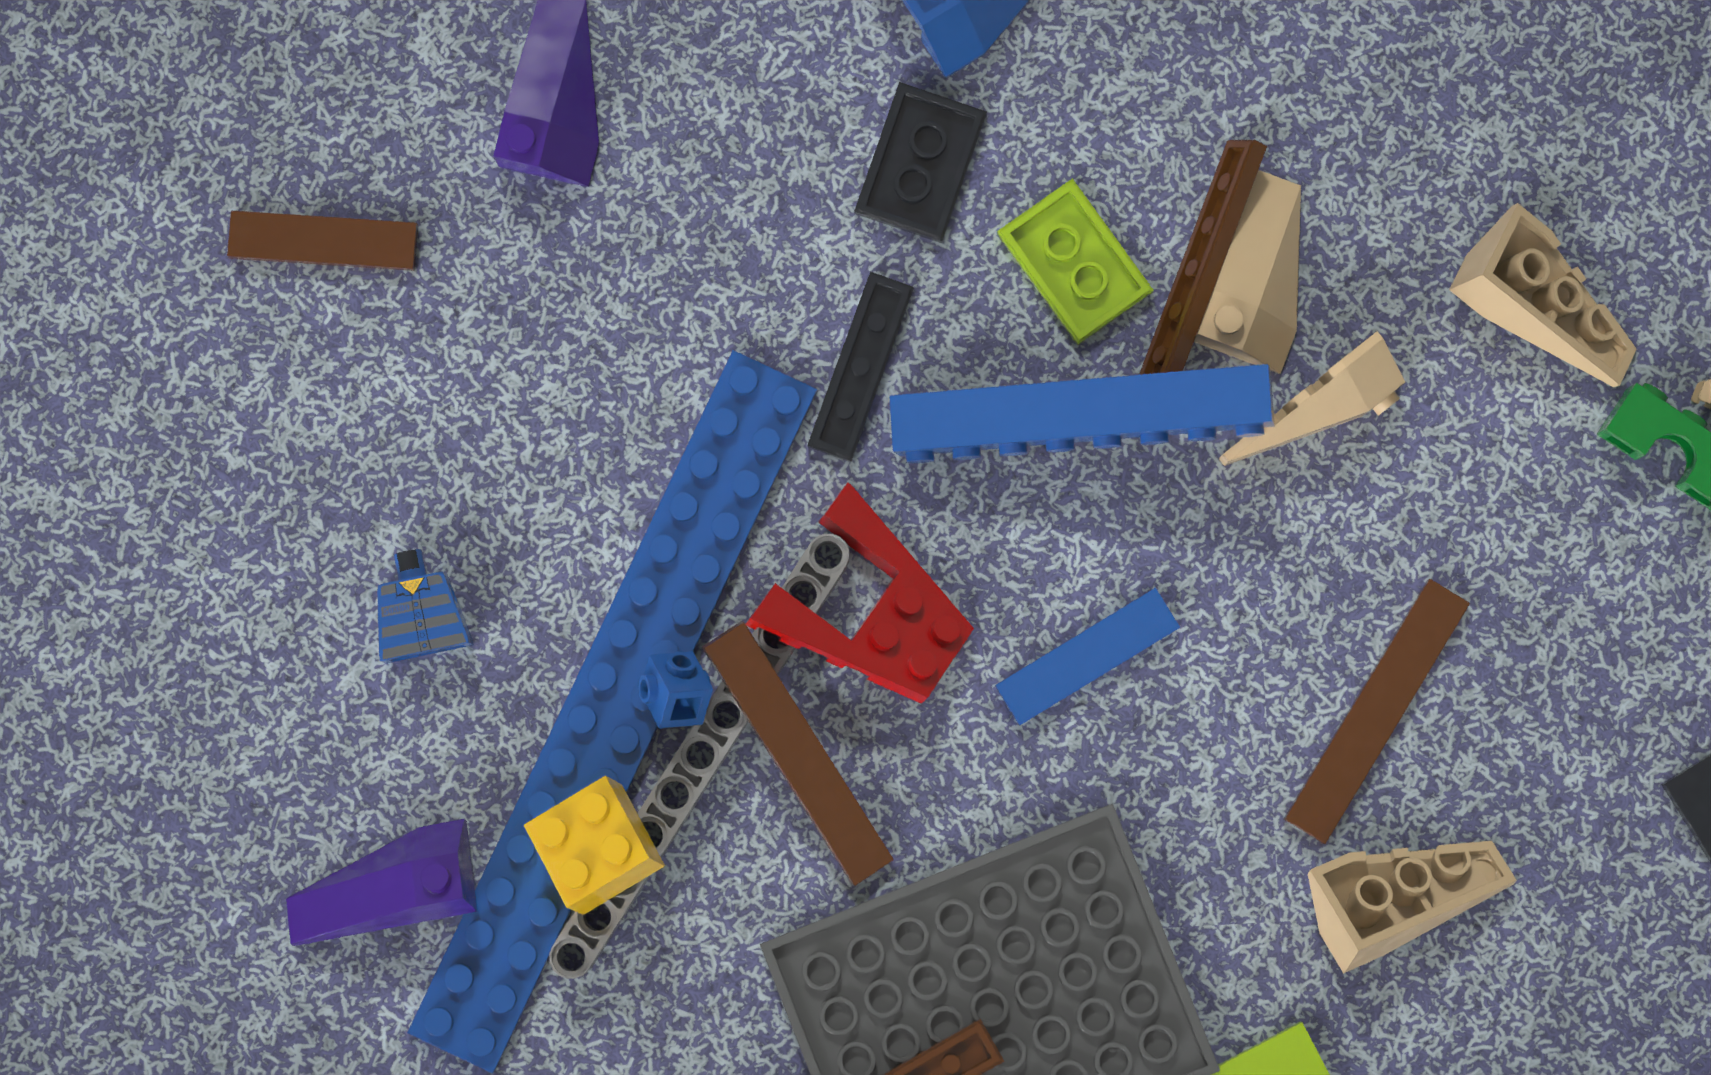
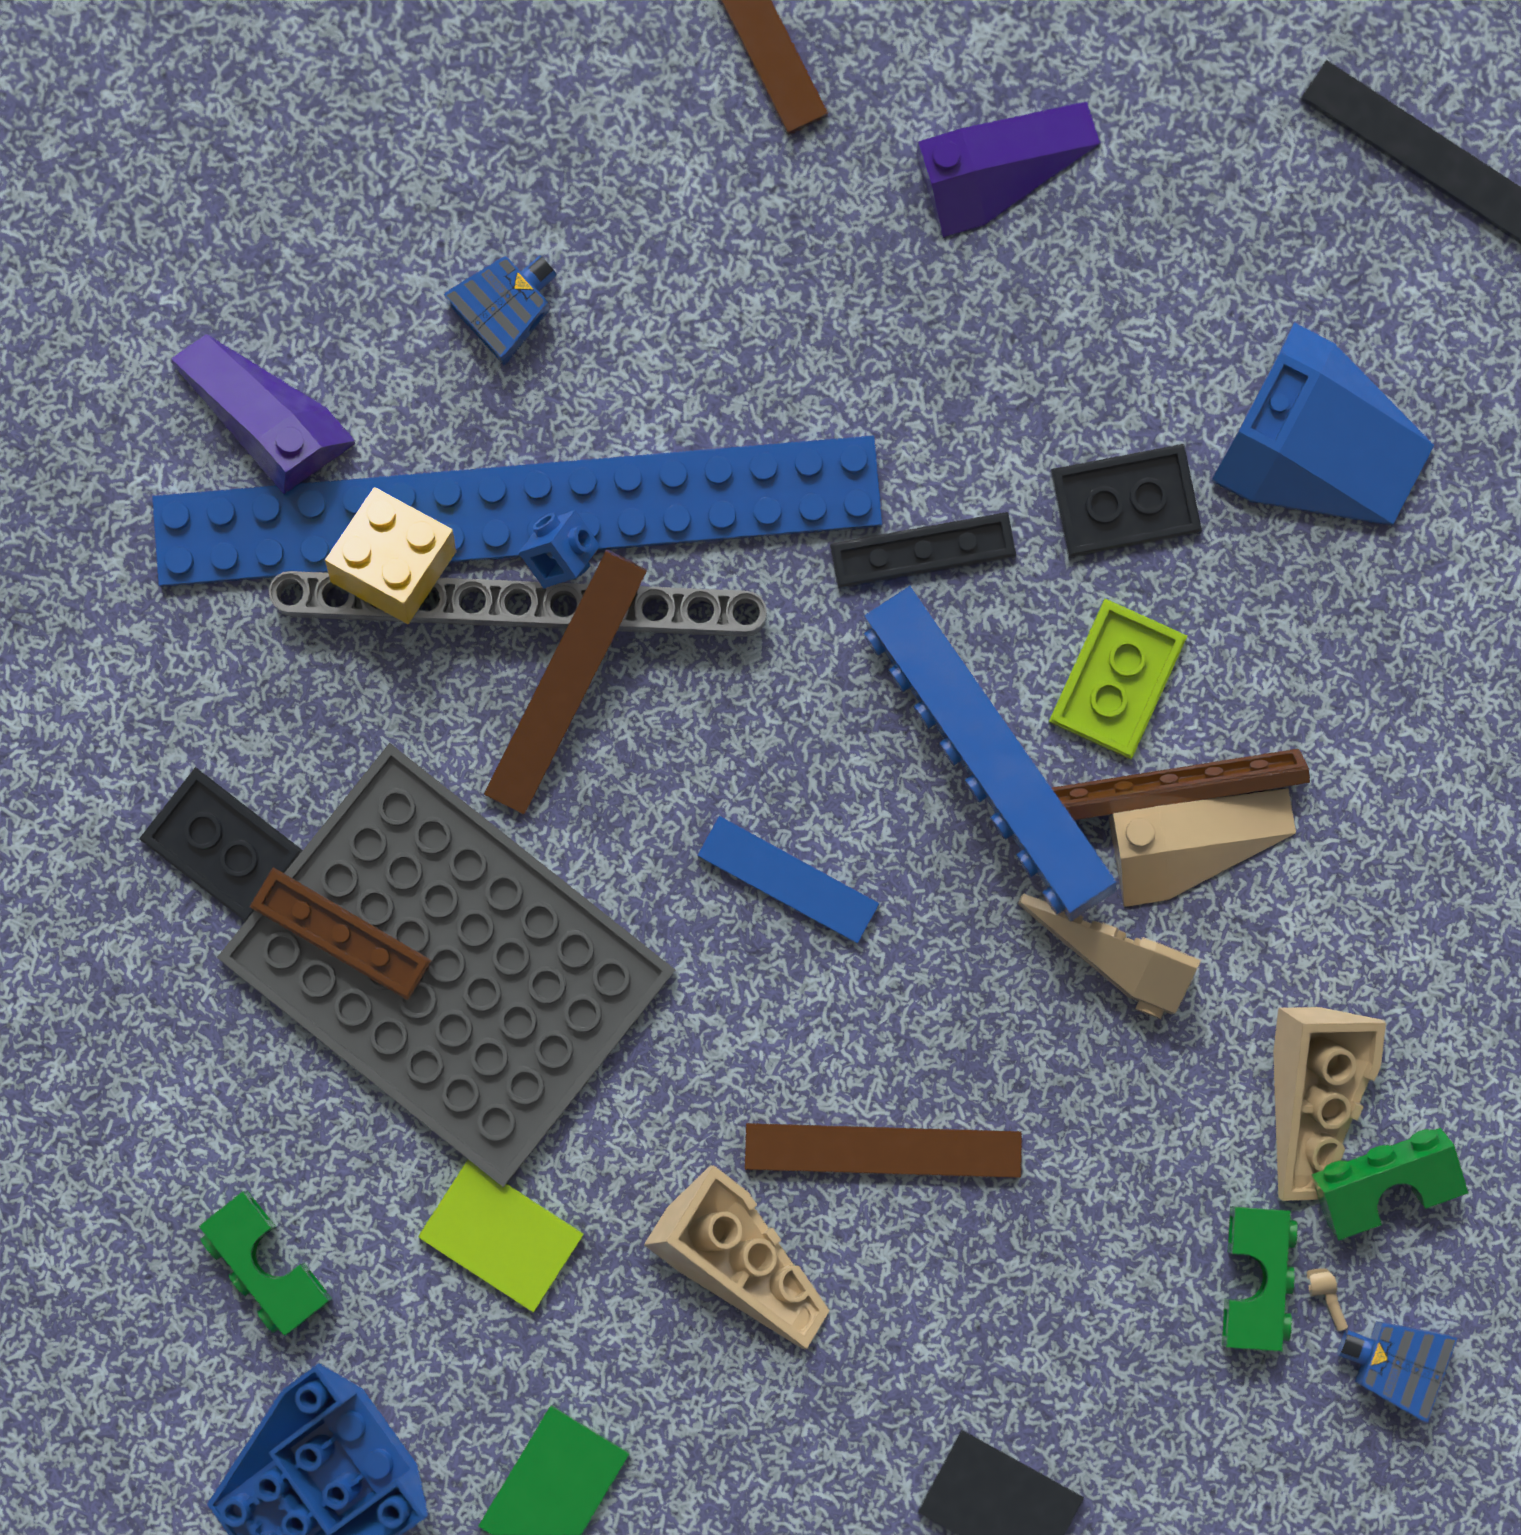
camera: 60 degrees right, 0 degrees up
(907, 633) = (714, 715): red wing -> none
(1645, 315) = (1352, 1188): none -> green arch

